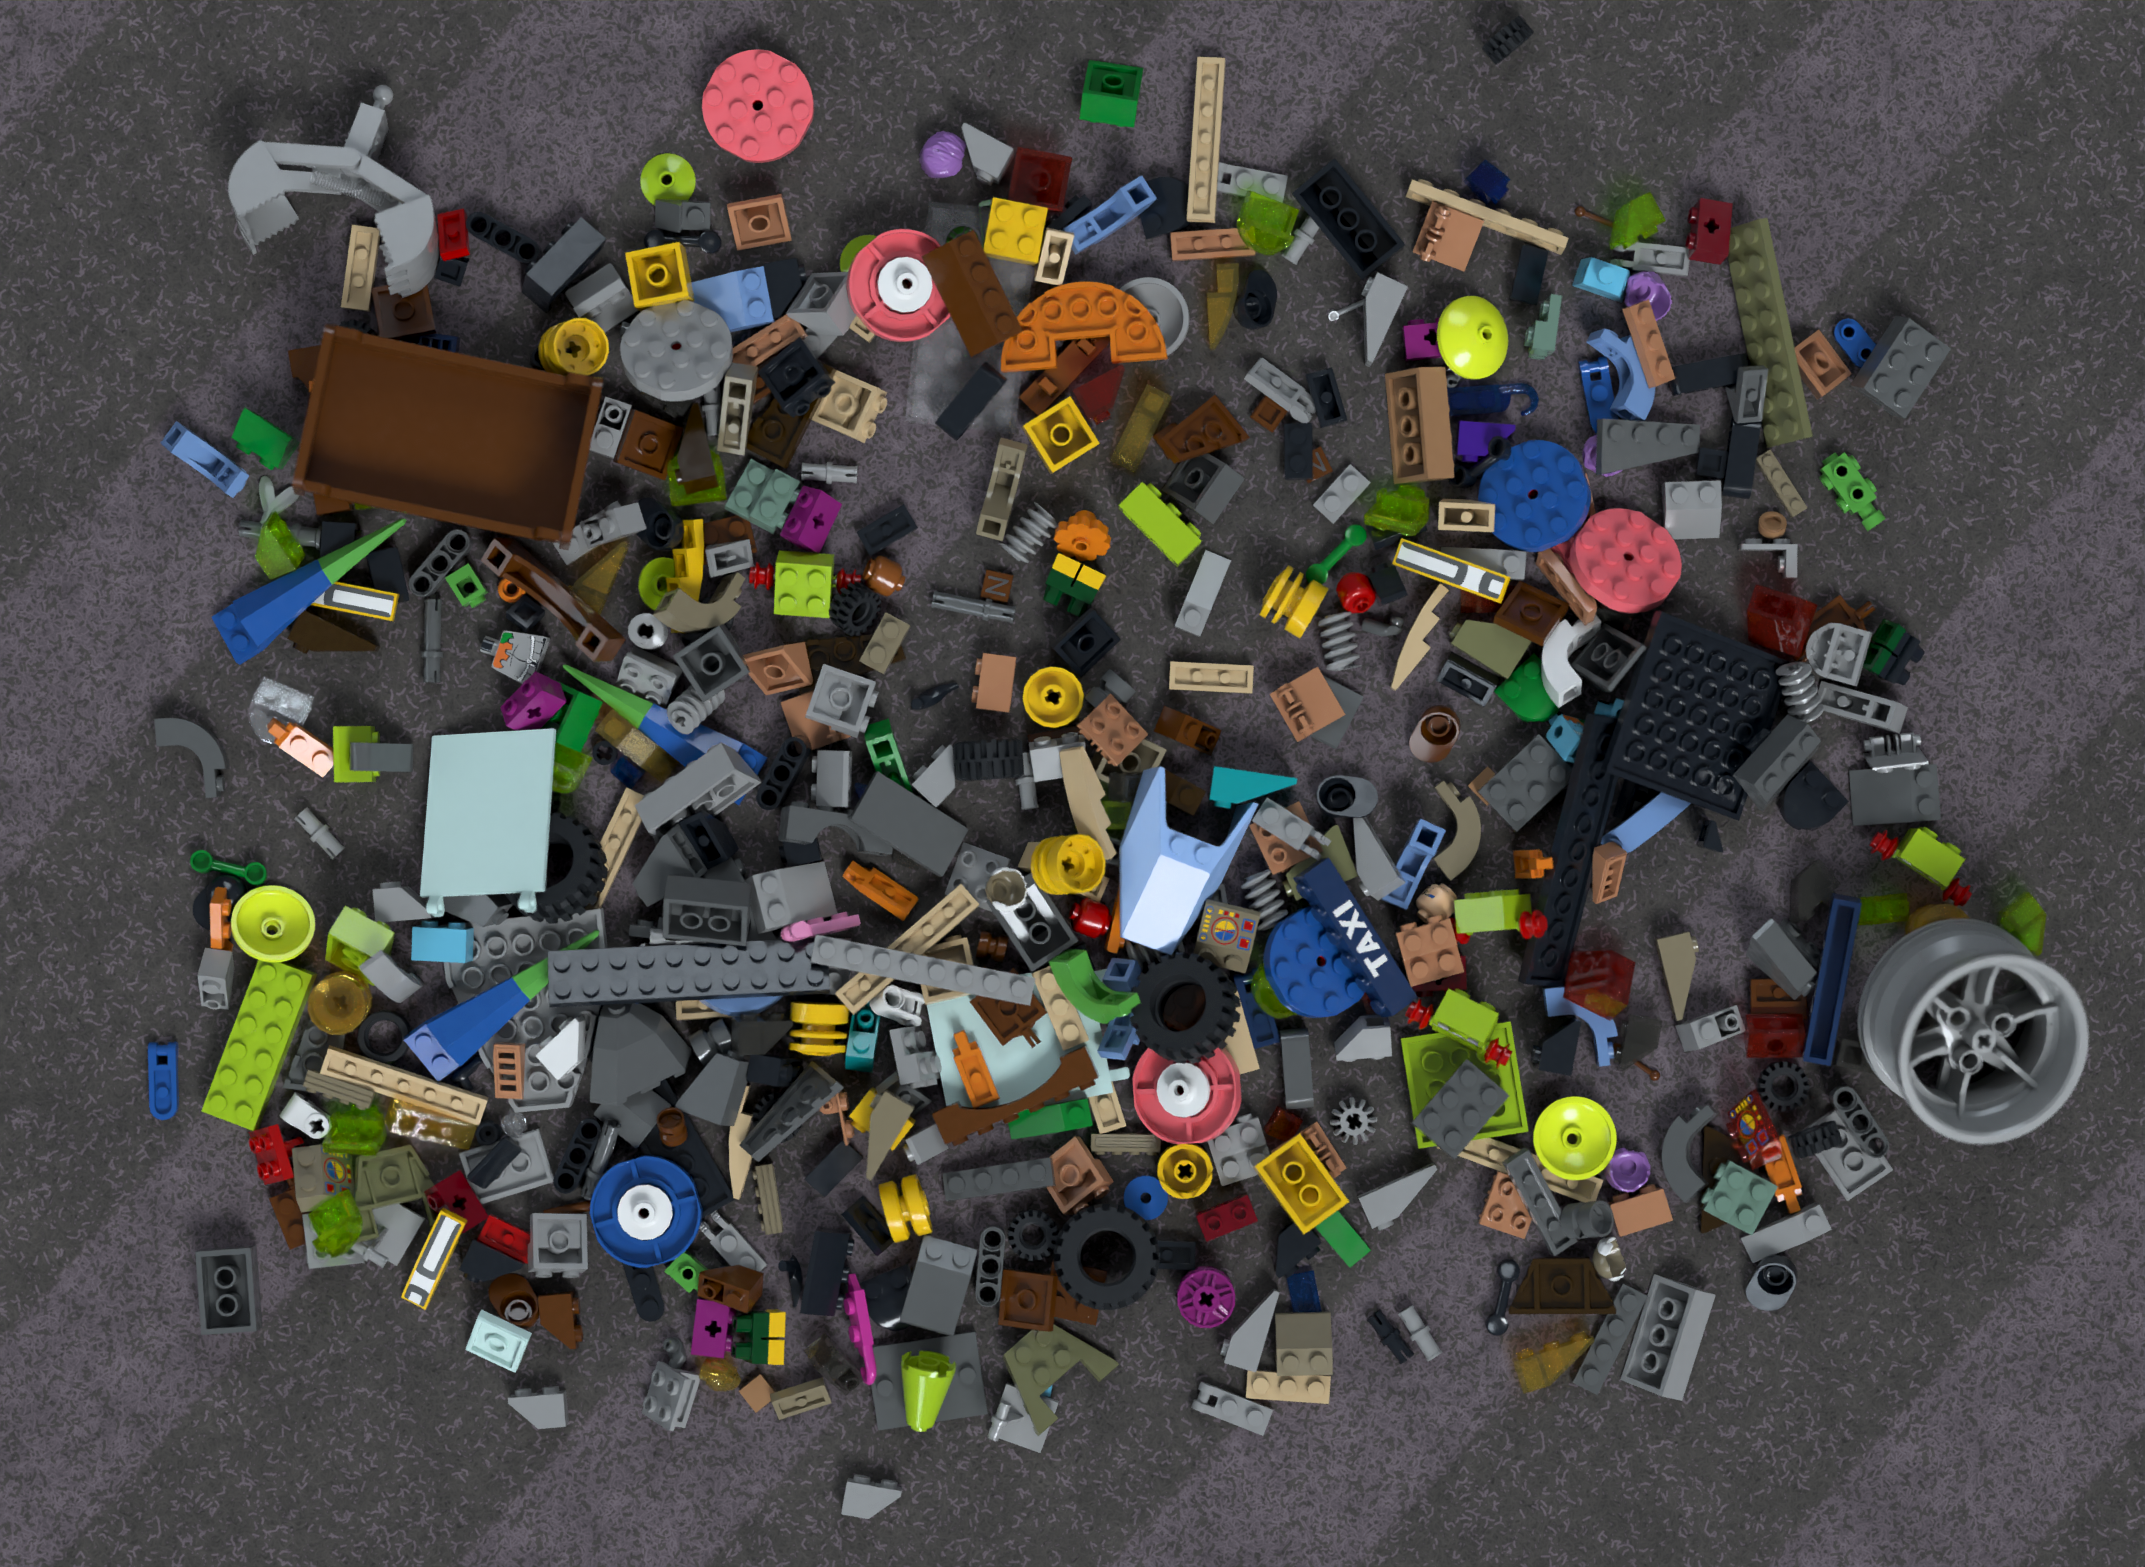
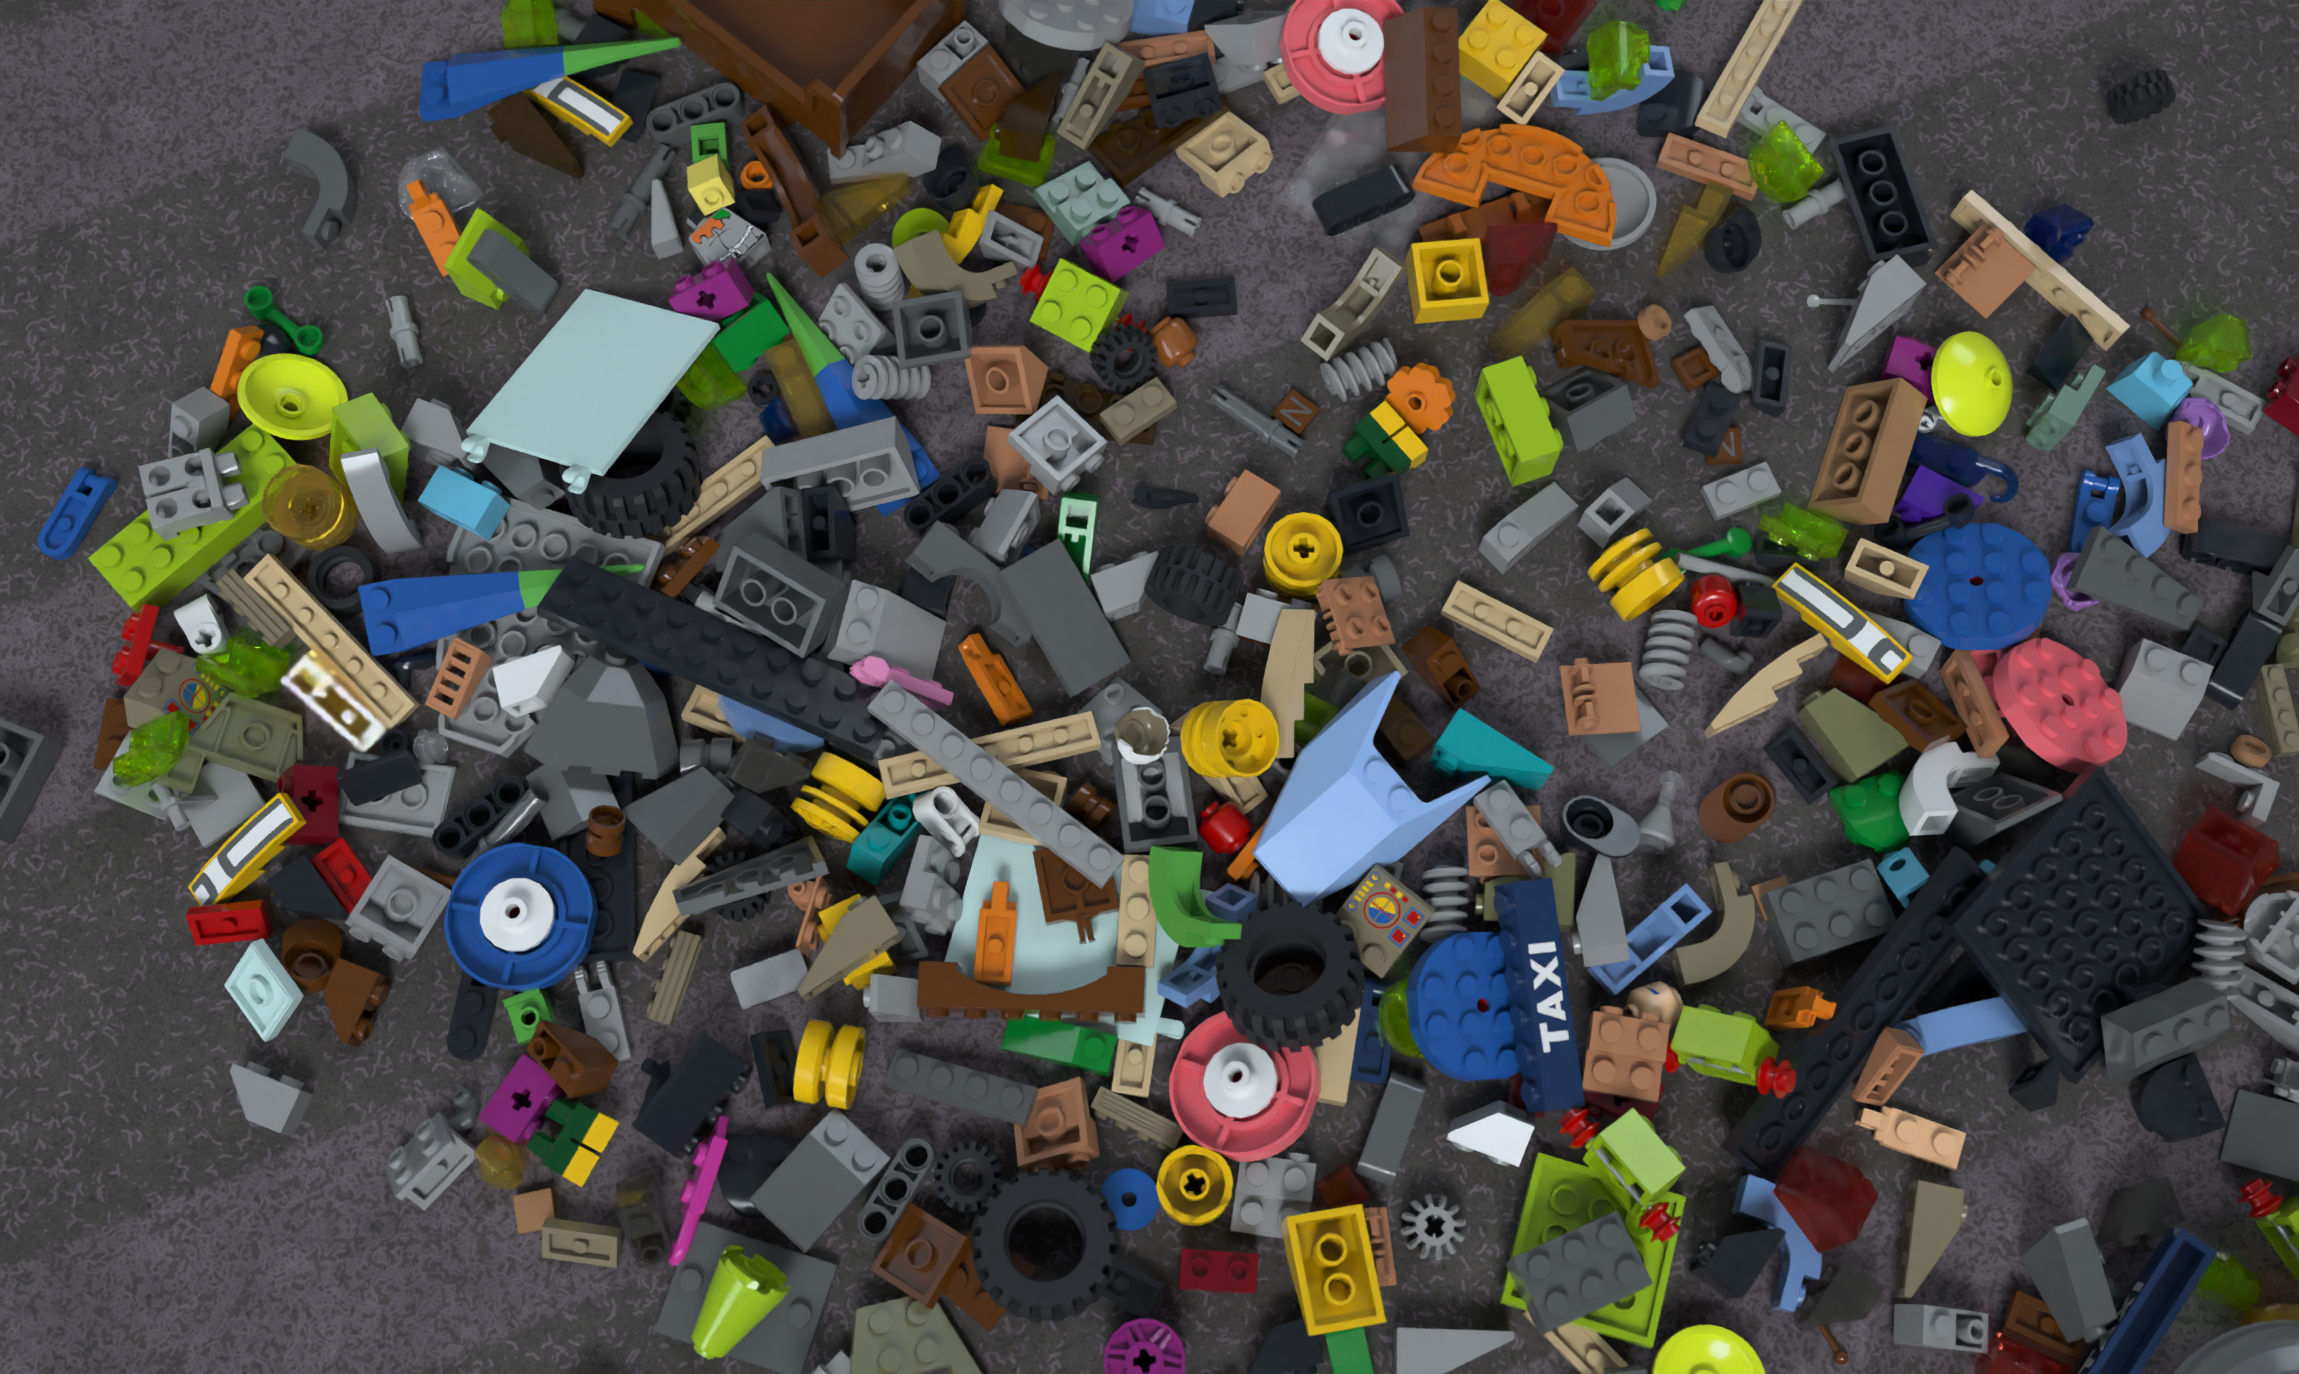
camera: 30 degrees right, 15 degrees down
(262, 1028) = (192, 491): none -> light grey hips
(446, 1307) = (229, 922): none -> red plate
(466, 663) = (664, 230): none -> light grey slope
(485, 617) = (710, 184): none -> light yellow brick
(623, 914) = (690, 558): none -> reddish brown plate
(1107, 203) = (1616, 58): none -> clear neon green slope
(1224, 392) = (1654, 322): none -> medium nougat tile
(1259, 554) = (1613, 511): none -> light grey slope
(1355, 565) = (1713, 568): none -> light grey bar
(1385, 776) = (1657, 826): none -> piece
(1645, 906) = (1914, 1135): none -> light nougat hinge

